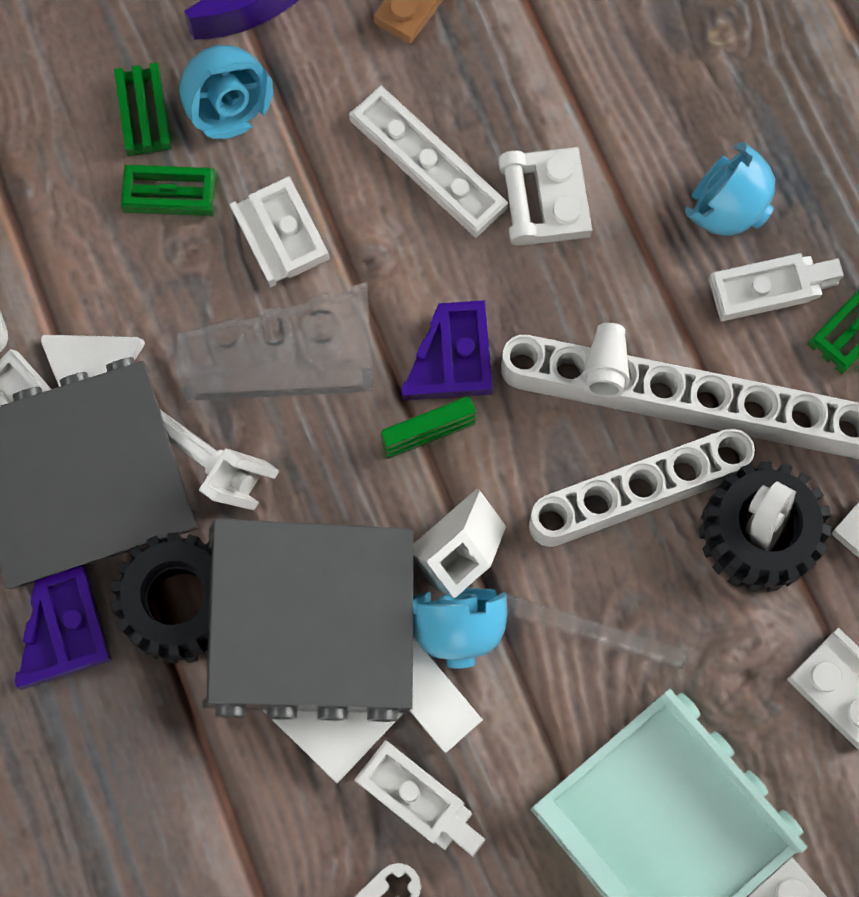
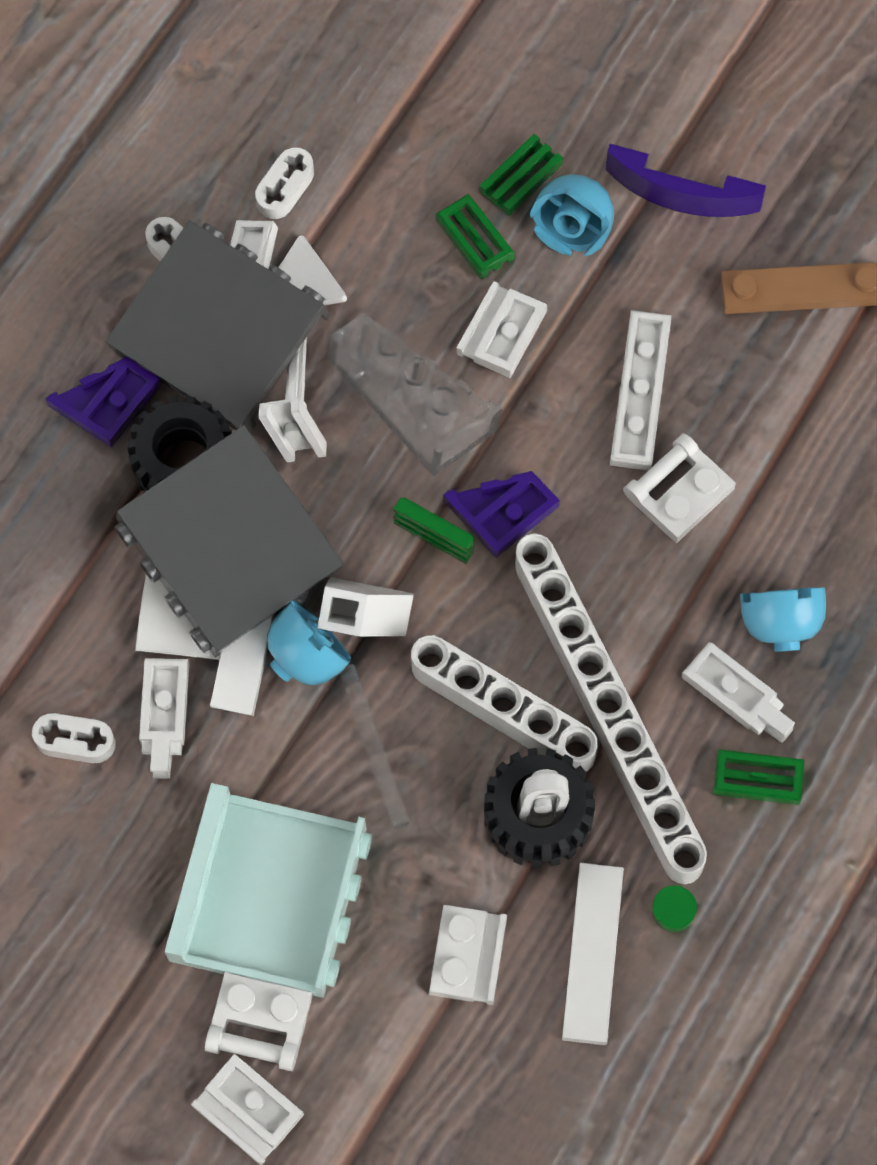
camera: 55 degrees right, 5 degrees down
(607, 362) = (569, 607): white cone -> none

